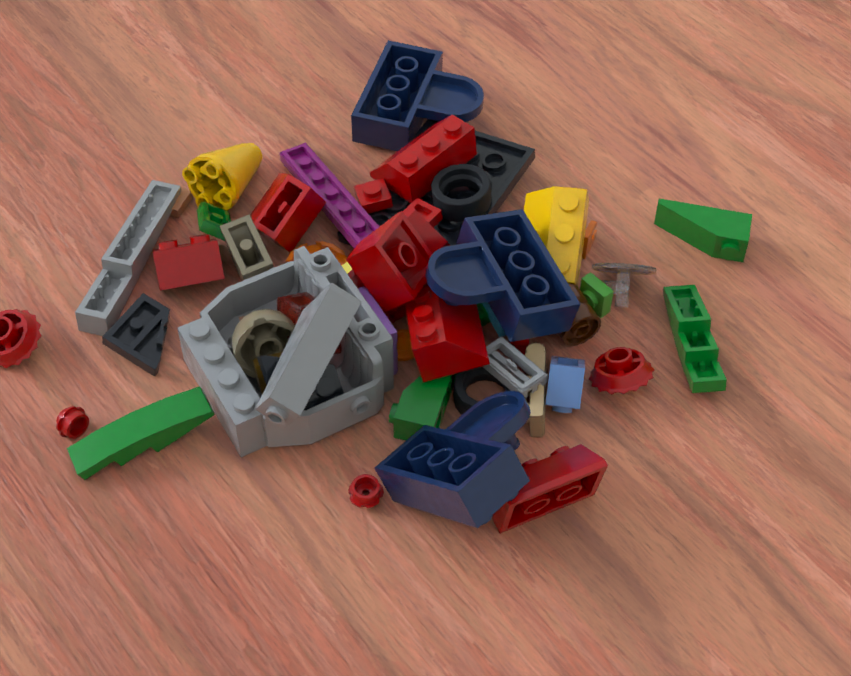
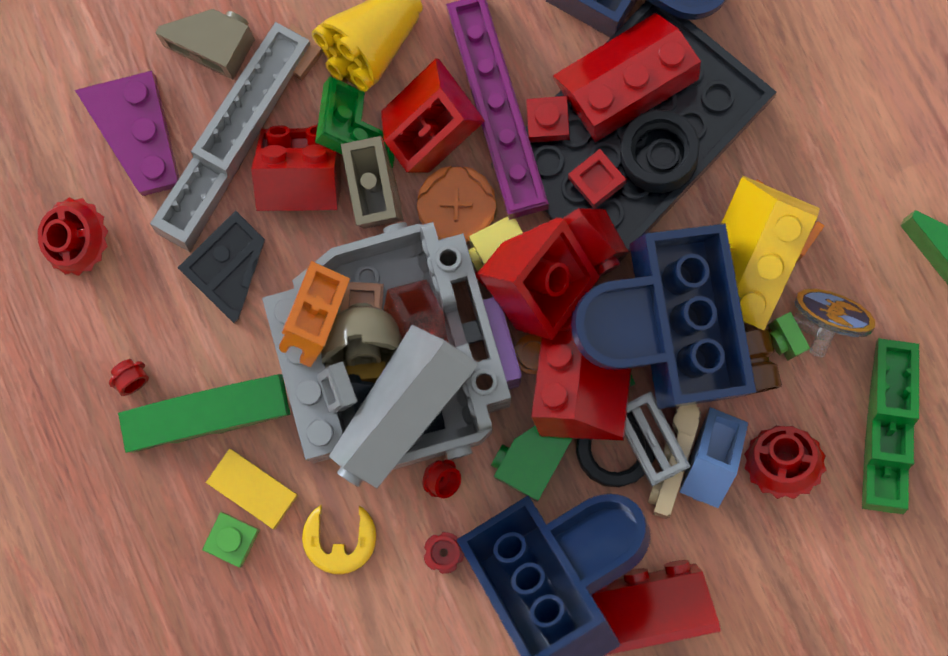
camera: 20 degrees right, 30 degrees up
(50, 264) = (135, 128): none -> magenta wing
(101, 200) = (210, 40): none -> dark tan slope
(180, 521) = (231, 539): none -> bright green plate
(192, 481) = (252, 488): none -> yellow tile
(221, 317) = (313, 312): none -> orange hinge
(251, 364) = (336, 388): none -> light grey tile
(276, 518) = (338, 560): none -> yellow head
(351, 438) = (441, 479): none -> red plate

